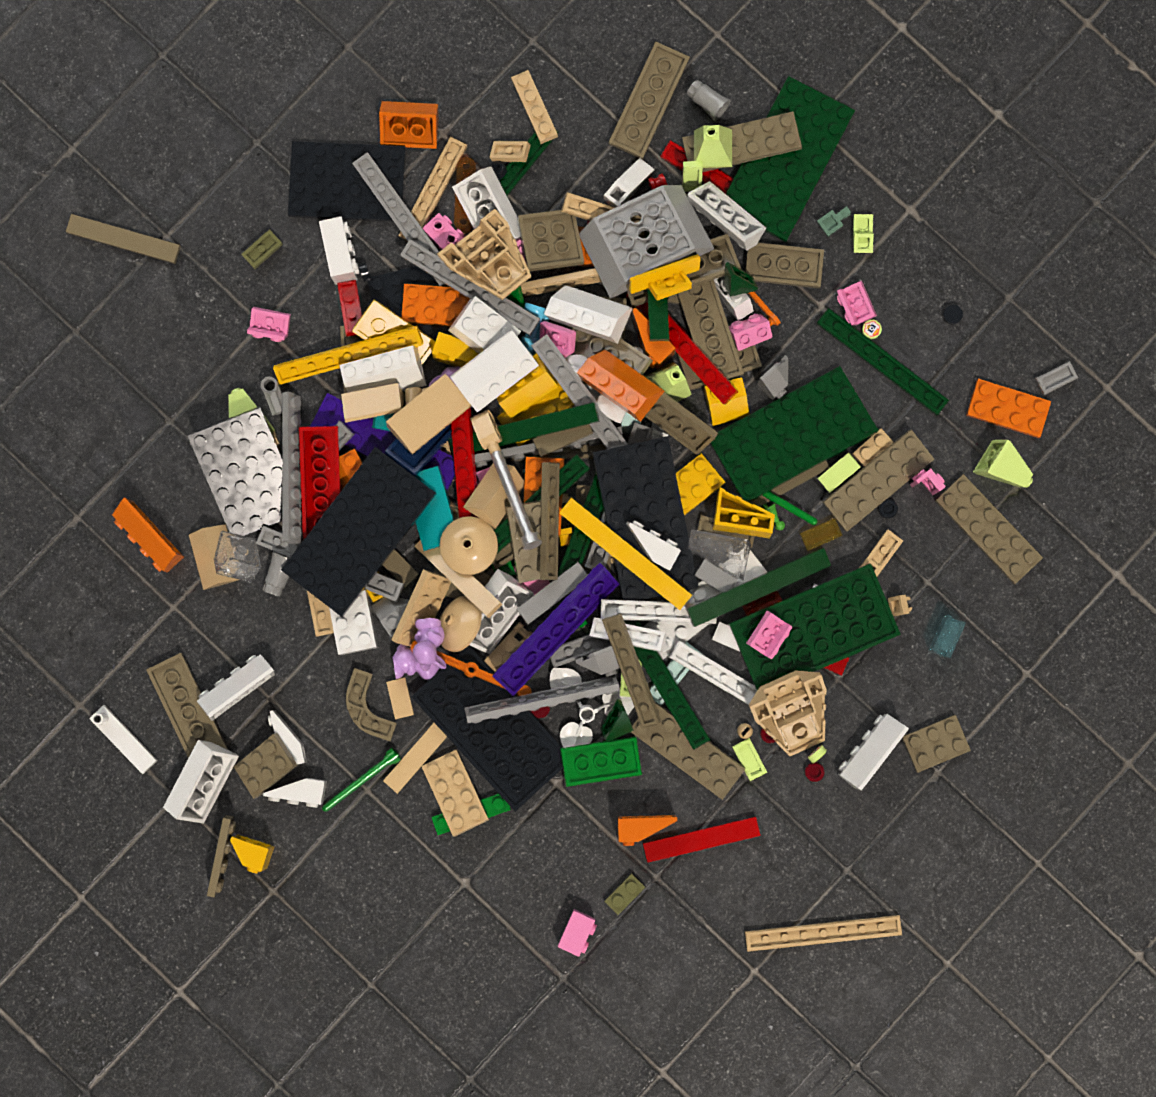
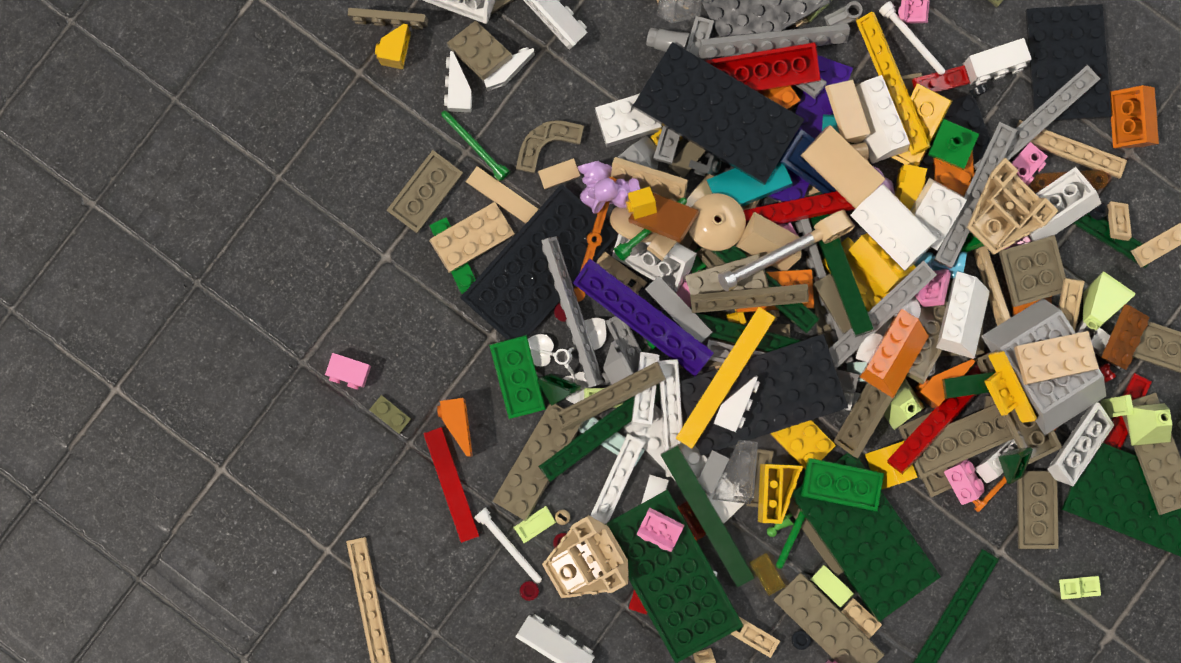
camera: 85 degrees right, 0 degrees up
(274, 350) = (888, 10): none -> white piece
(320, 616) = (630, 86): tan plate -> none
(403, 836) = (425, 191): none -> dark tan plate
(412, 553) = (711, 168): none -> dark grey bracket
(416, 303) = (953, 144): none -> green tile
(442, 618) = (641, 203): none -> yellow brick
(458, 597) = (671, 219): none -> dark orange tile
(488, 641) = (623, 250): none -> green piece
(587, 176) = (1103, 300): none -> yellowish green slope
(625, 159) = (1125, 337): none -> dark orange plate
(641, 228) = (1056, 358): none -> tan plate
(738, 809) = (484, 518): none -> white piece
(741, 451) = (842, 484): none -> green tile
(775, 379) = (919, 512): light grey slope -> none
(817, 754) = (547, 591): yellowish green tile -> none
(832, 222) = (1088, 554): sand green plate -> none
(856, 303) = (1006, 587): bright pink bracket -> none
(871, 329) = (982, 605): tile -> none

